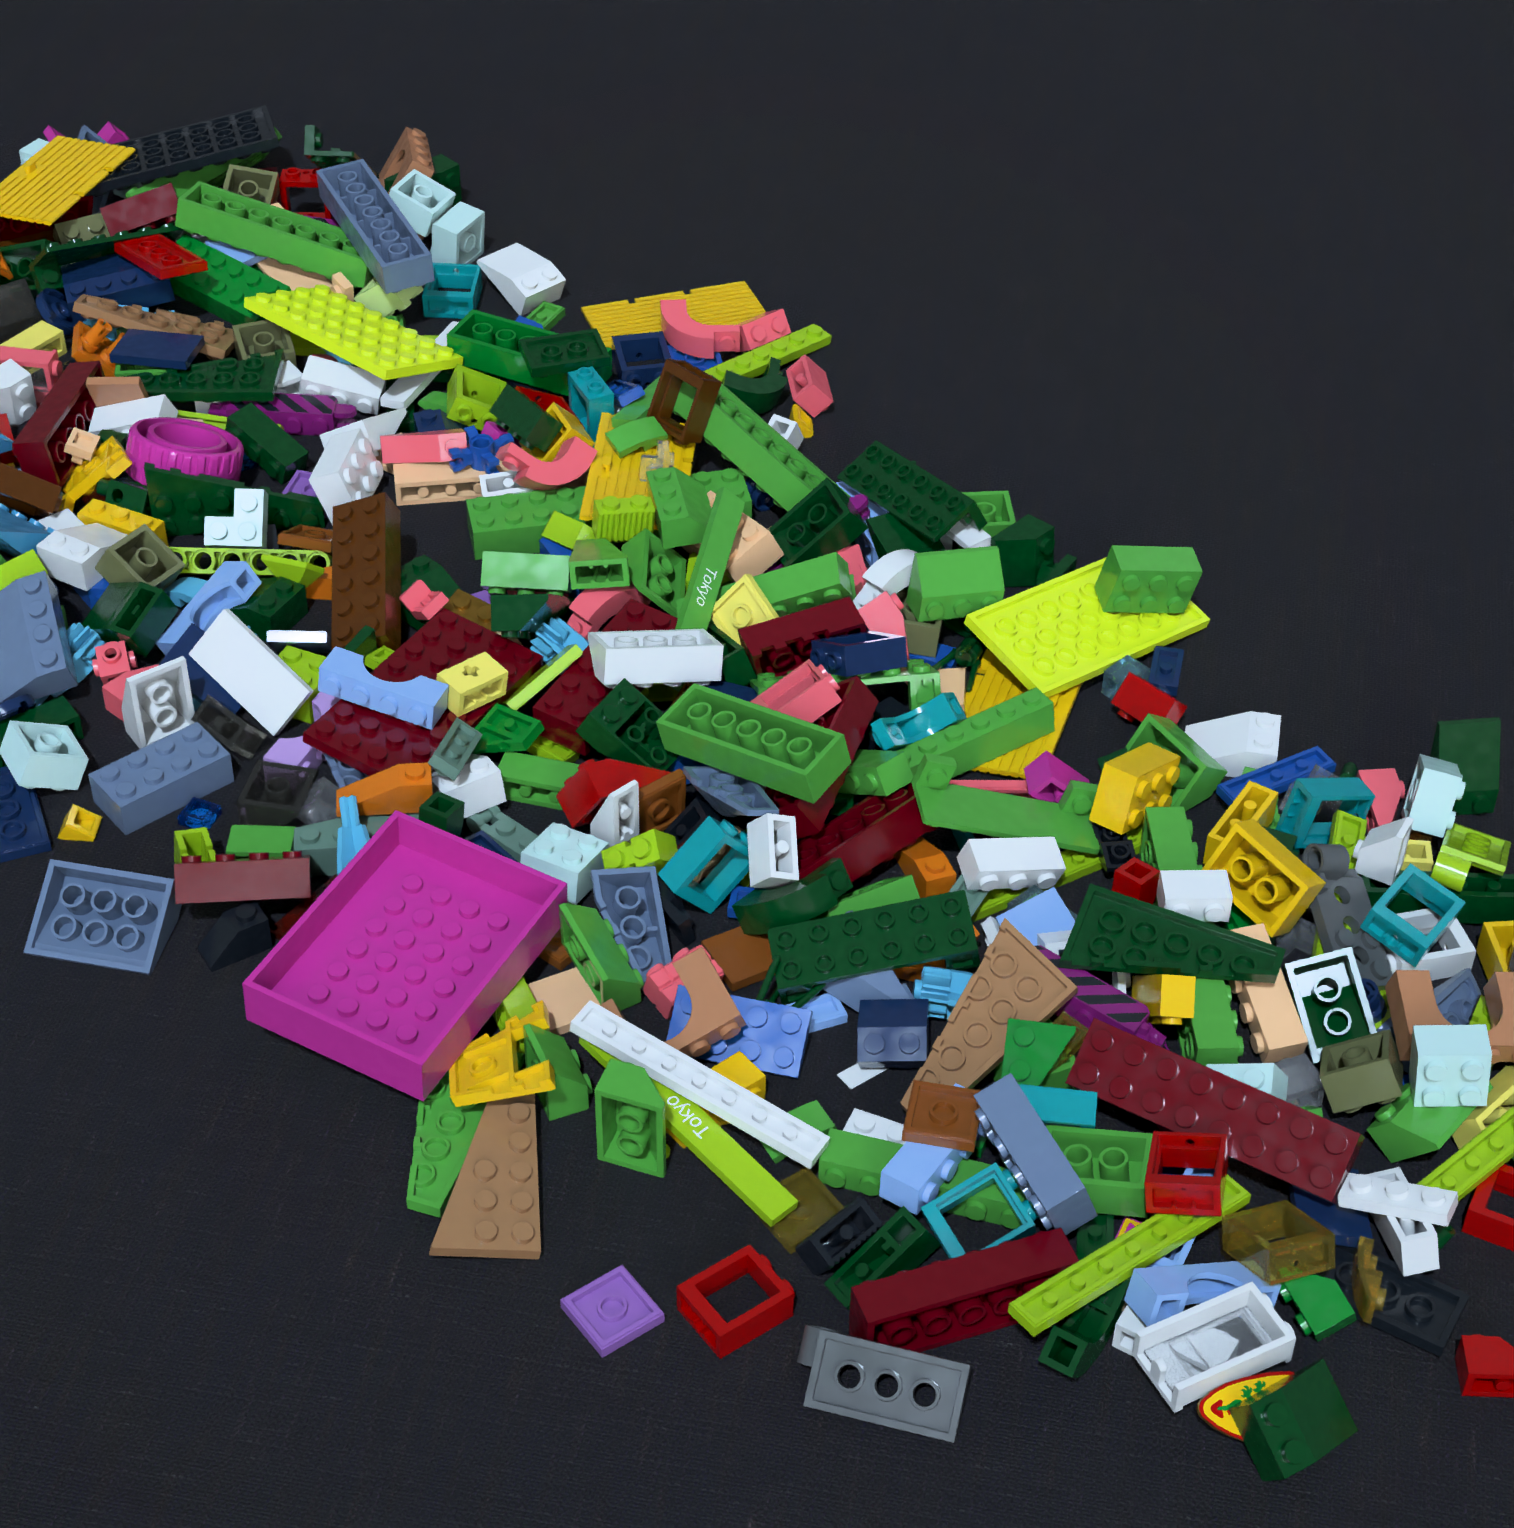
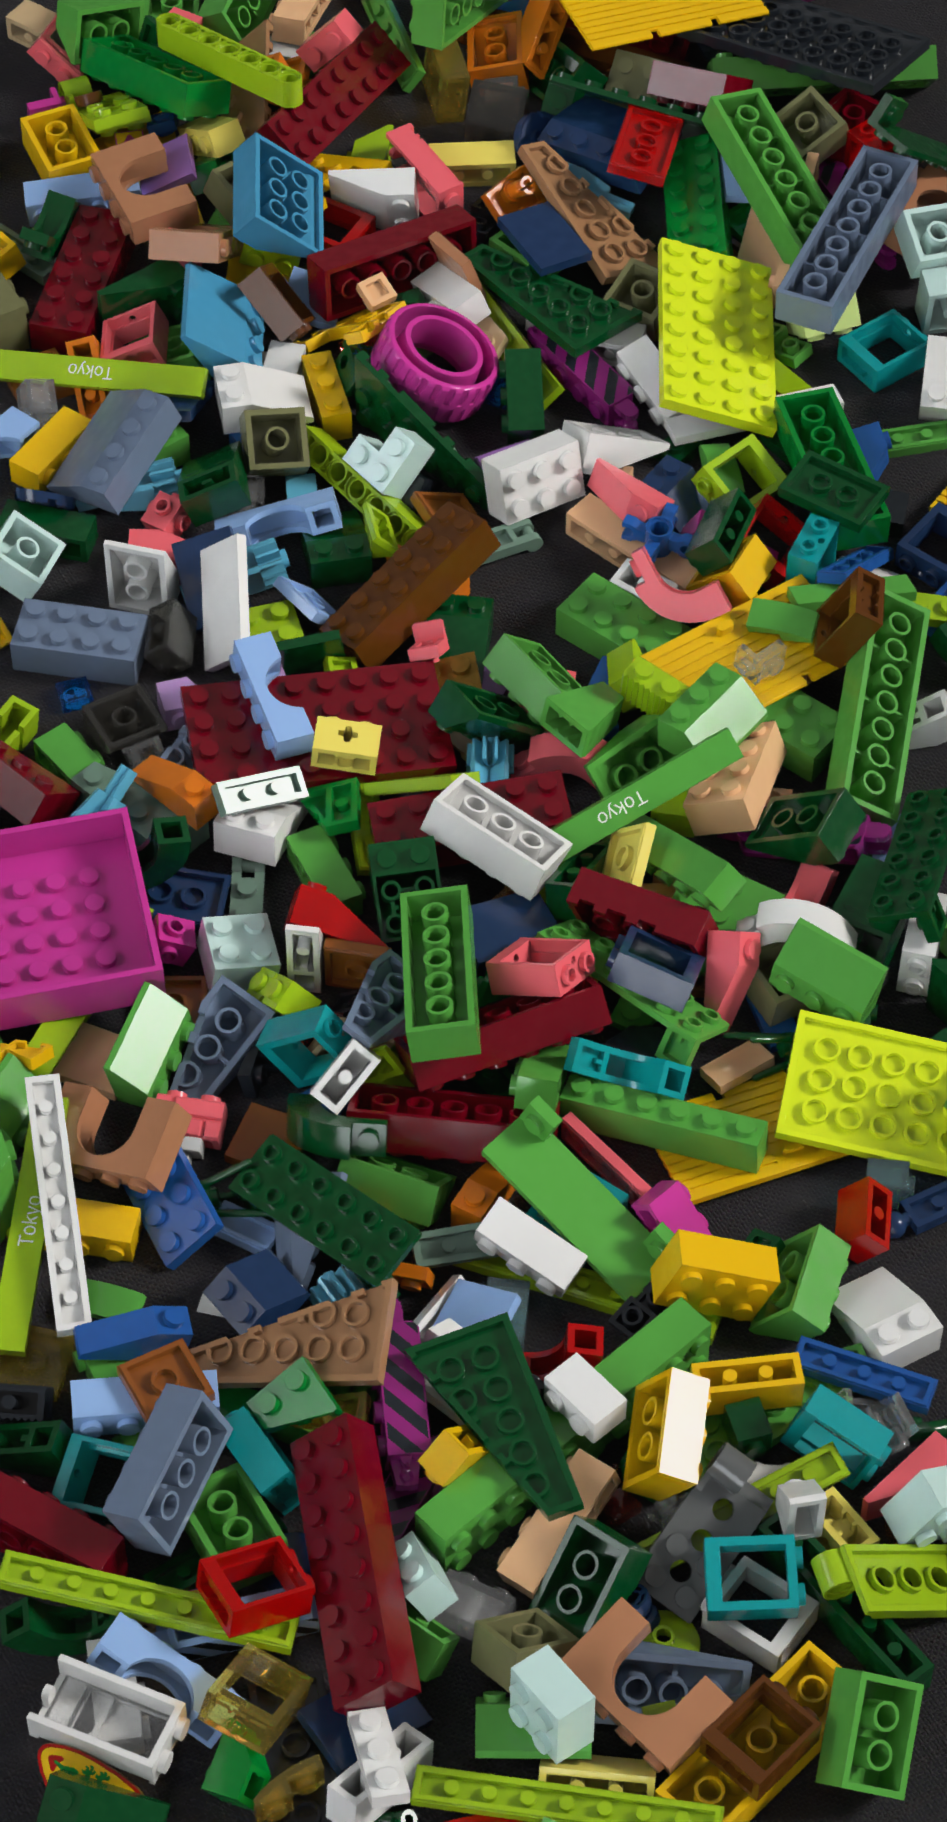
camera: 50 degrees right, 10 degrees up
(866, 1116) = (132, 1333): none -> blue slope

